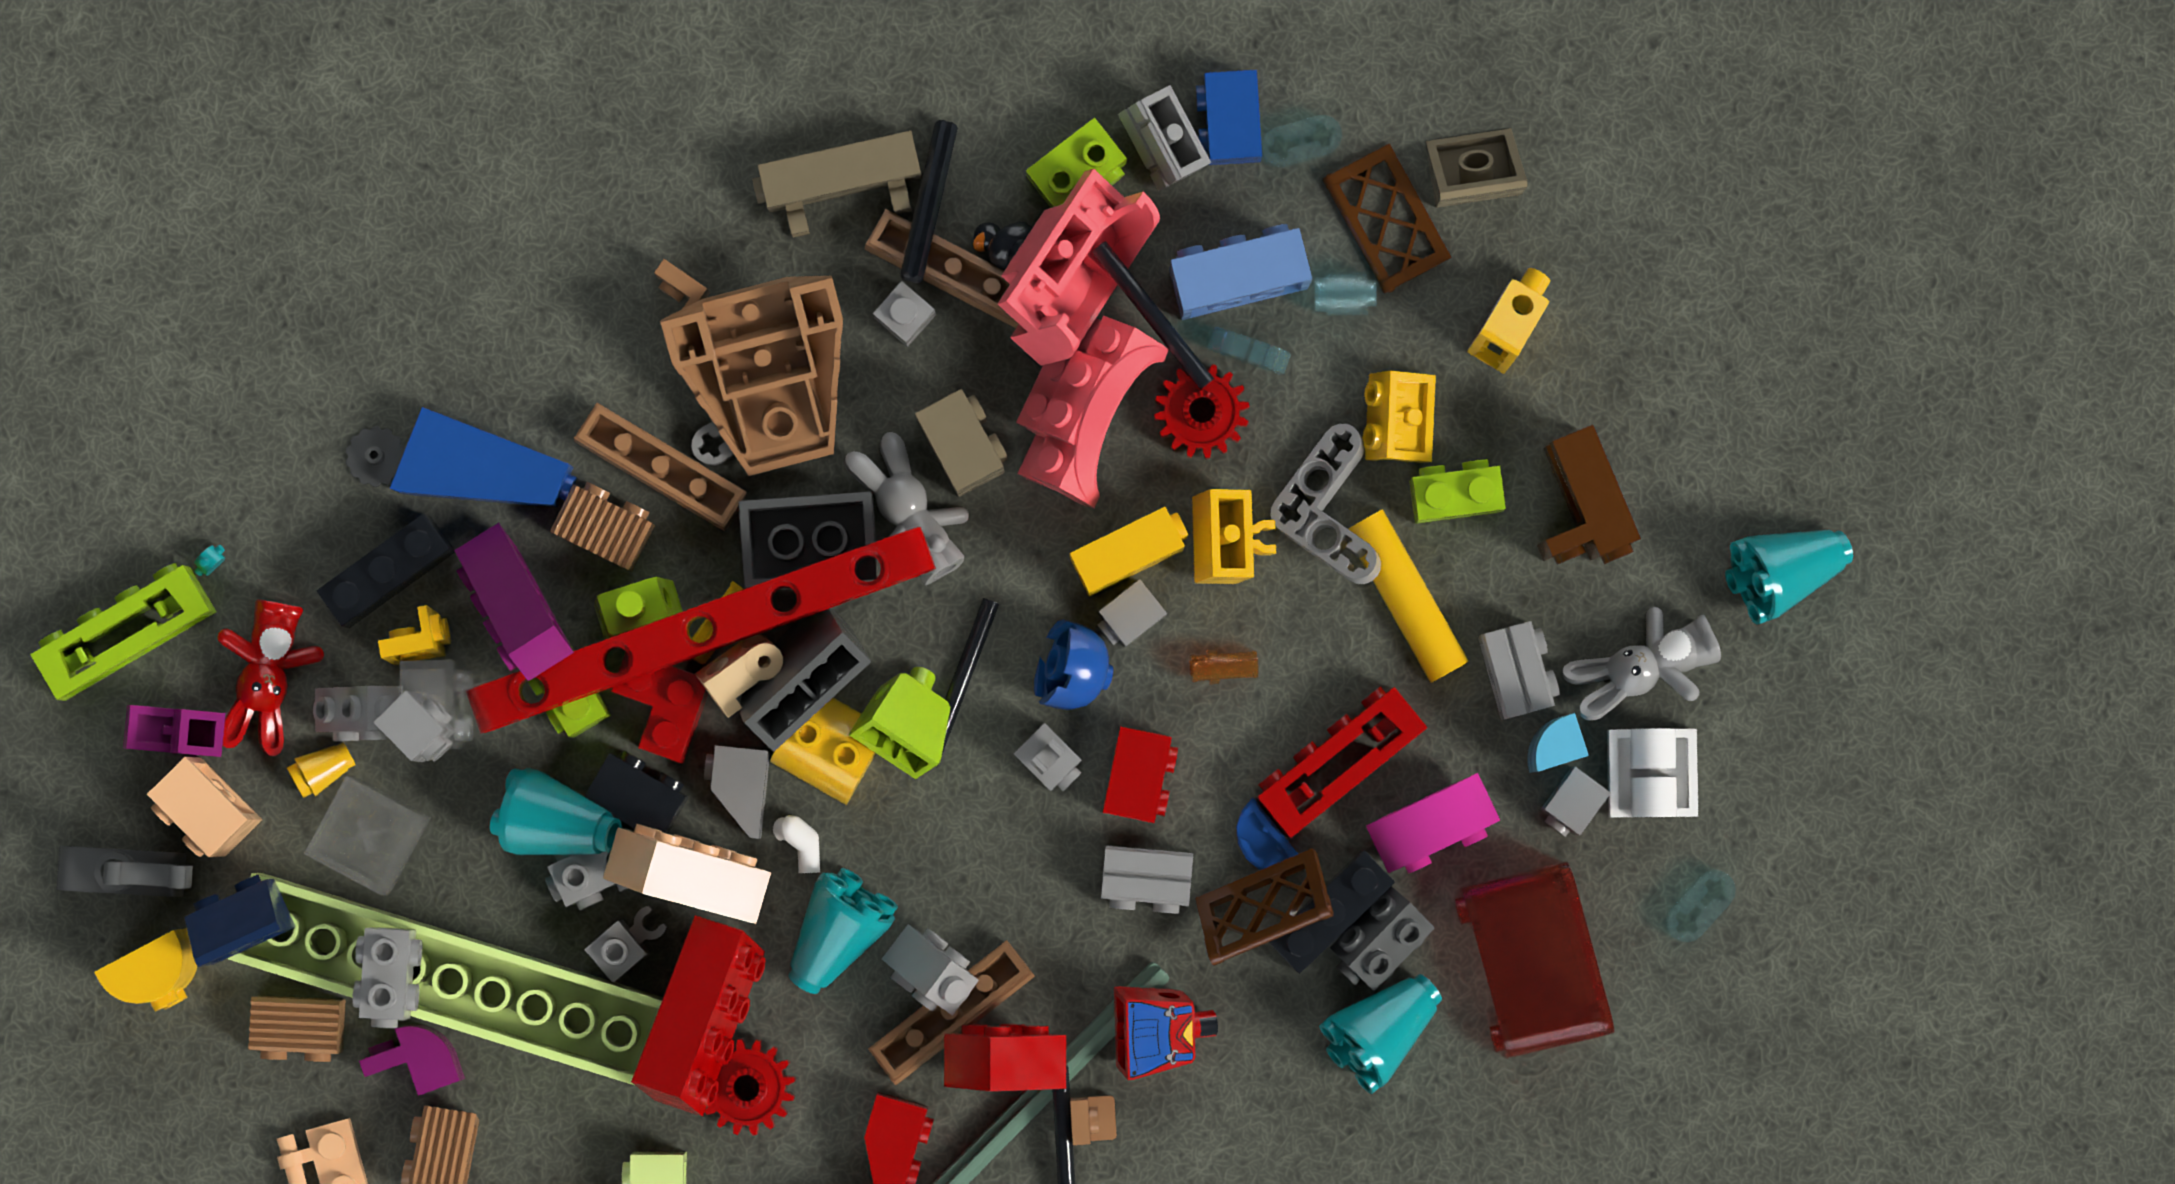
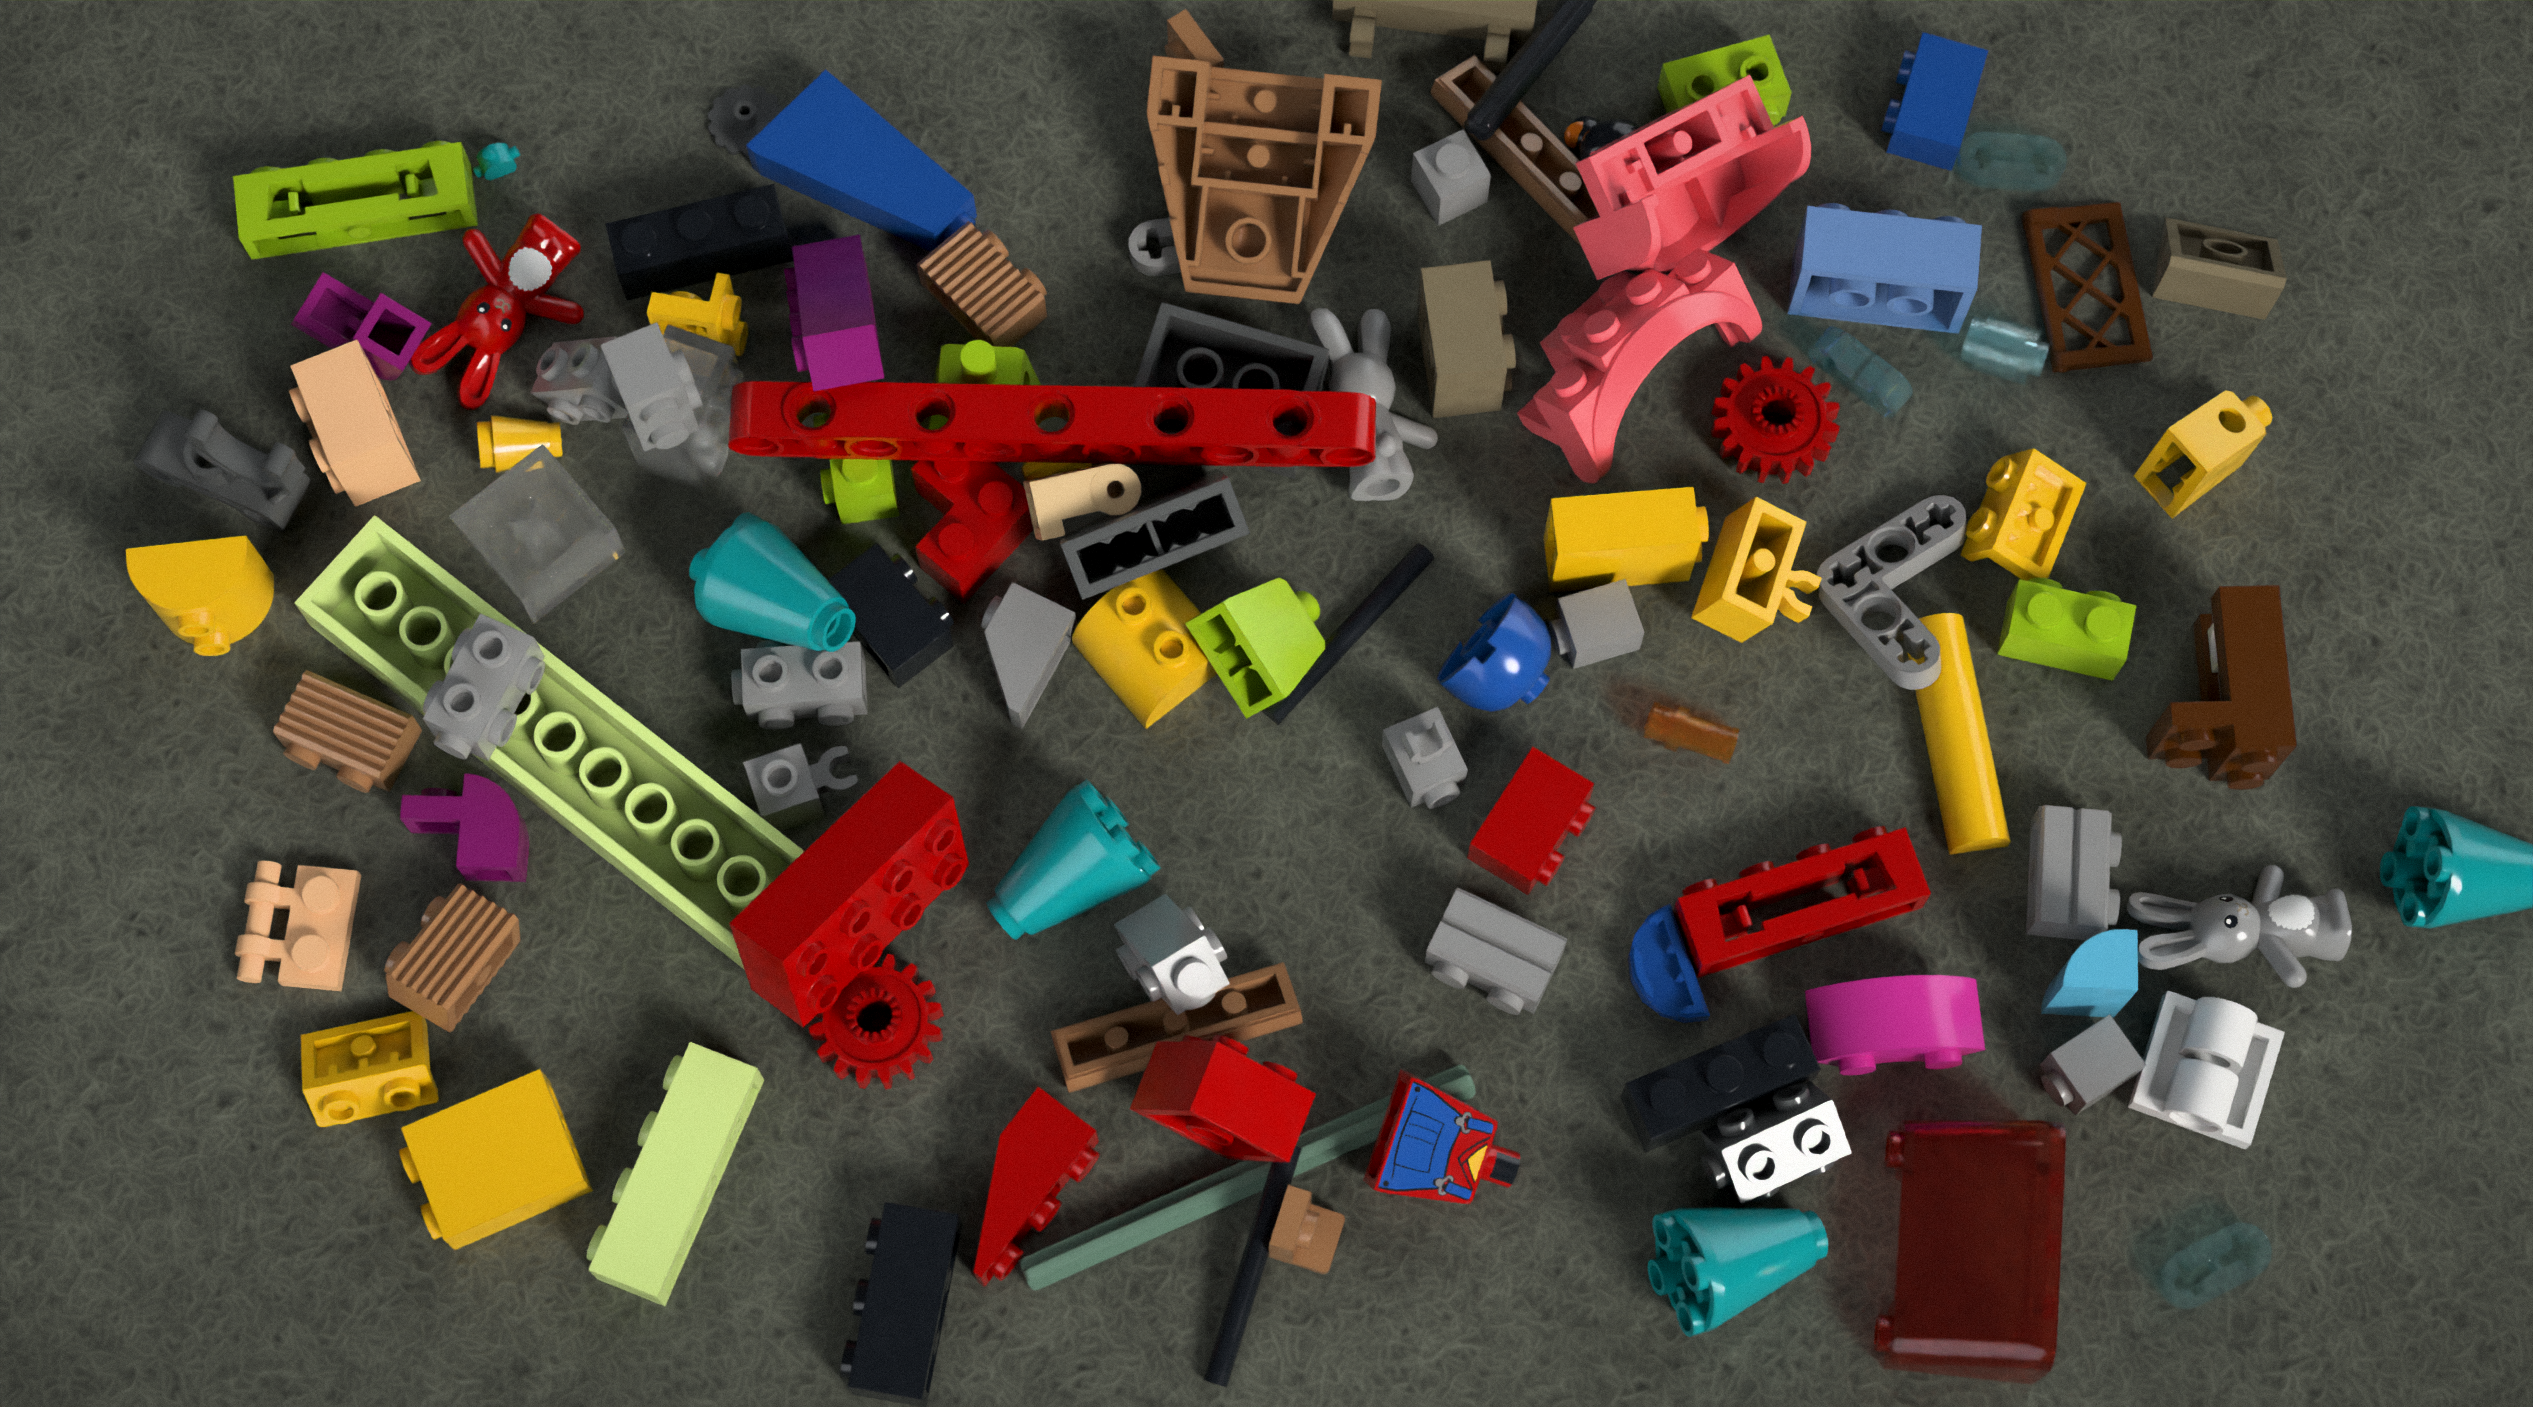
camera: 25 degrees right, 15 degrees down
(238, 921) = (328, 556): dark blue slope -> none
(660, 466) = (1080, 245): medium nougat brick -> none
(687, 872) = (912, 709): brick -> none
(802, 838) = (1073, 742): white arm -> none
(1153, 315) = (1757, 280): black bar -> none
(1164, 138) = (1845, 90): light grey brick -> none
(1276, 874) = (1607, 1015): reddish brown window -> none

